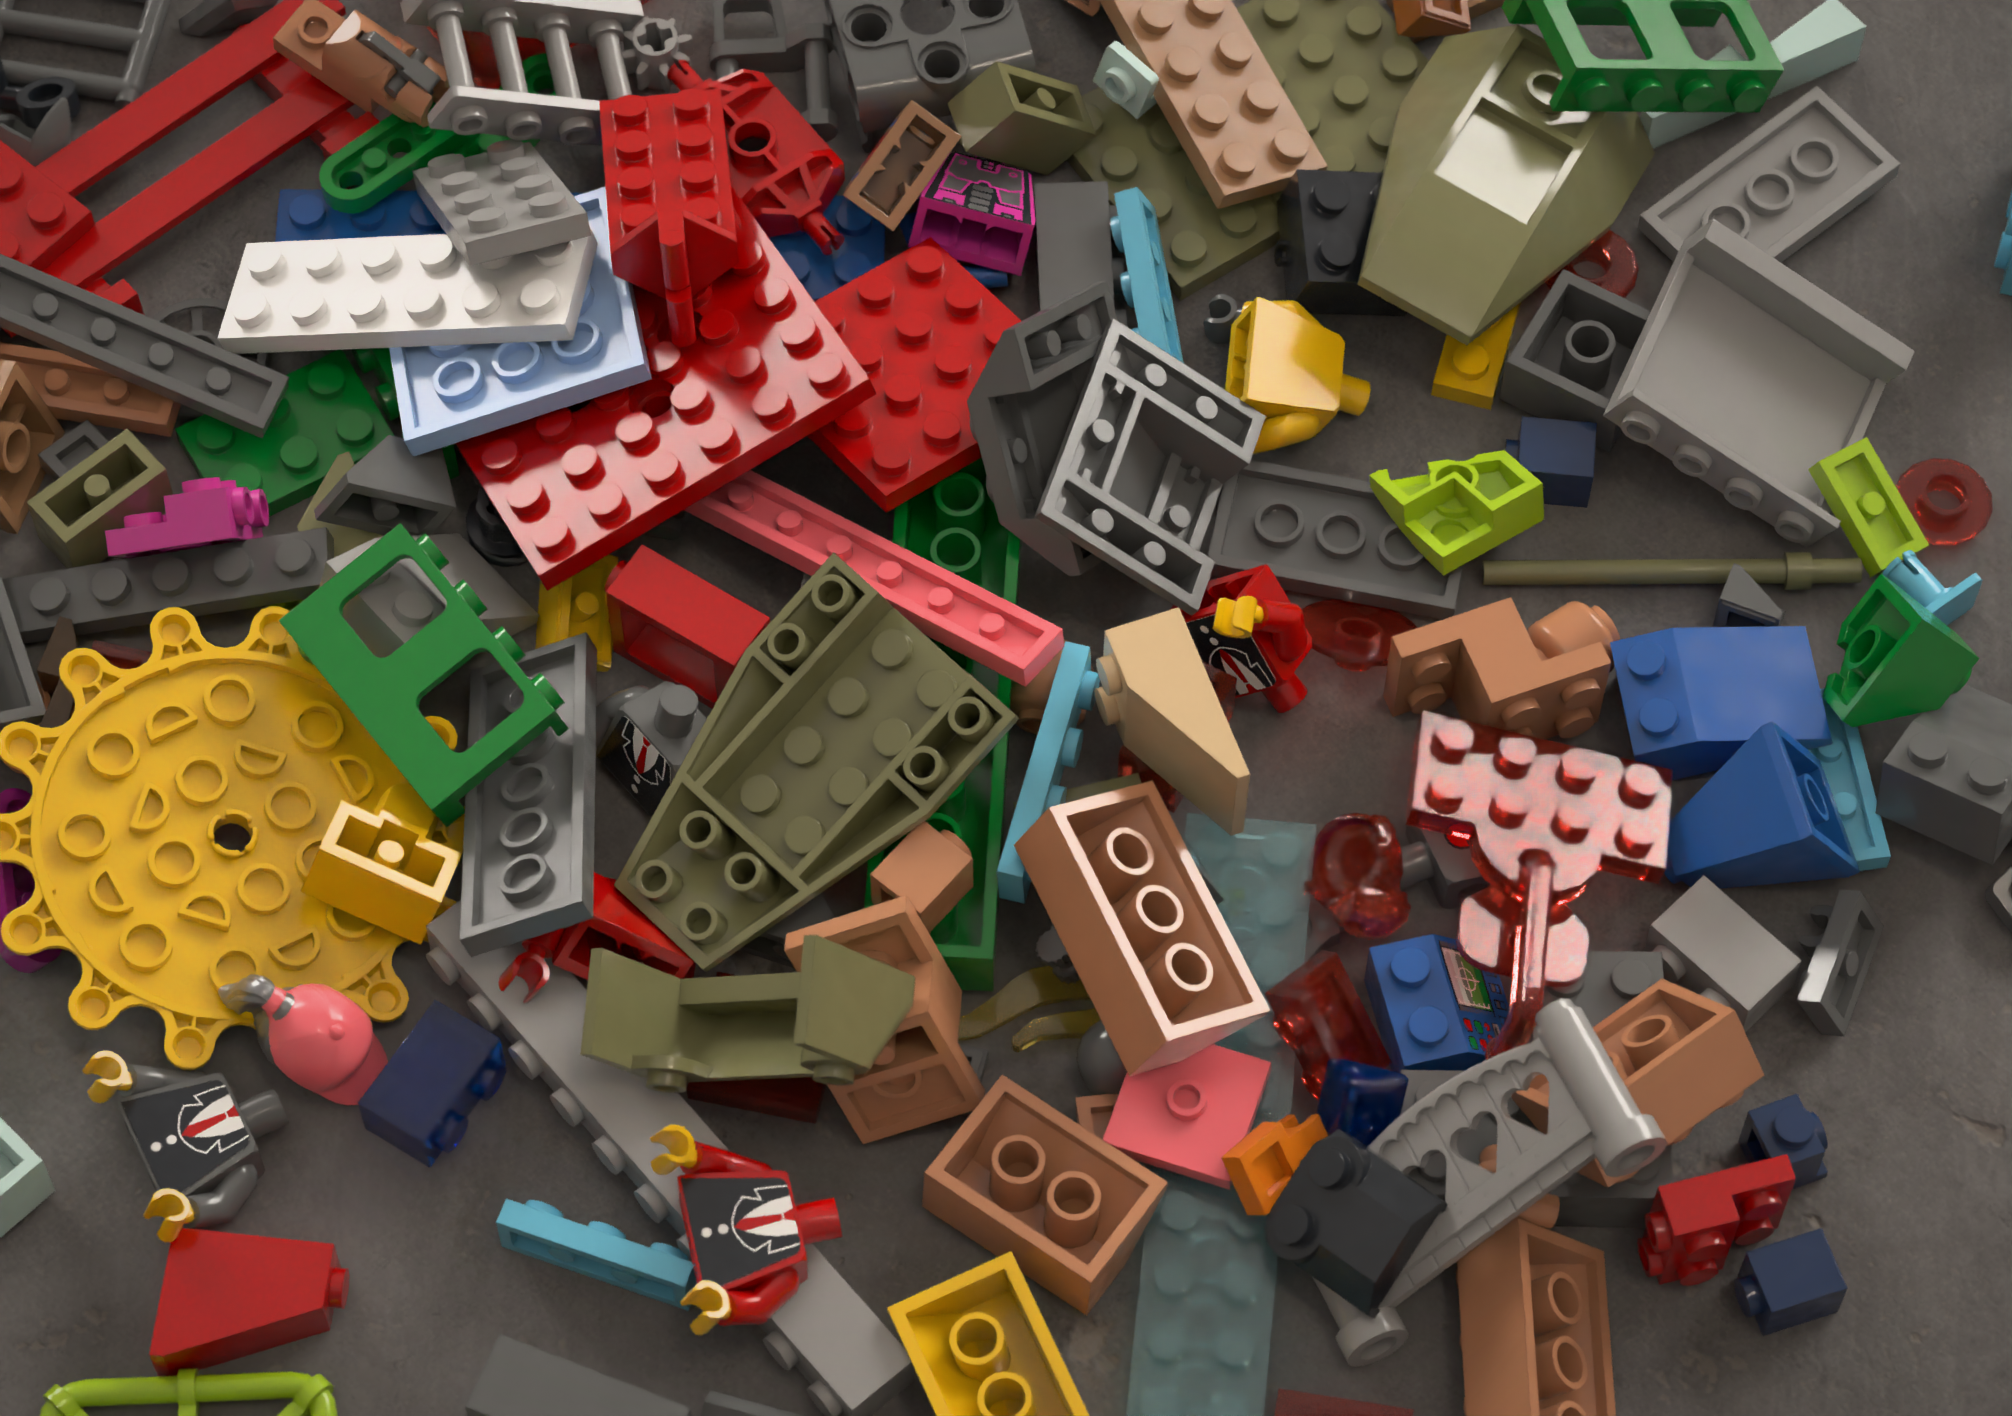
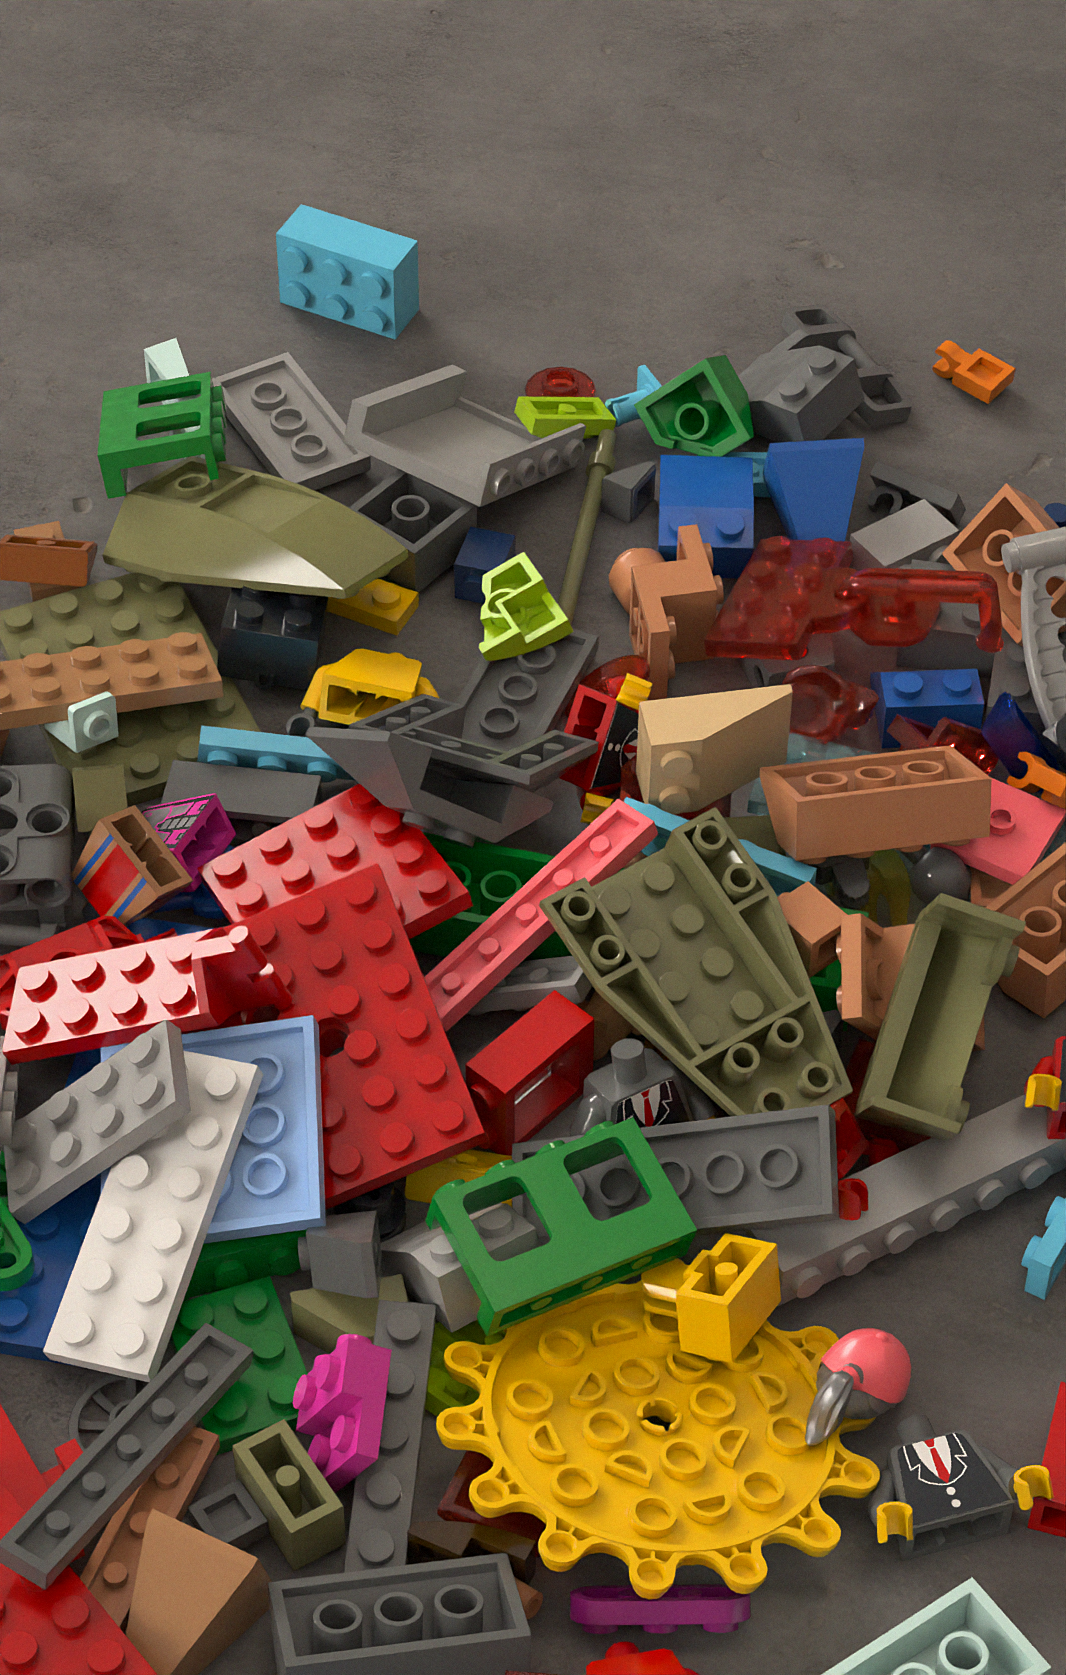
camera: 80 degrees left, 15 degrees down
(434, 1084) = (903, 1301): clear blue brick -> none

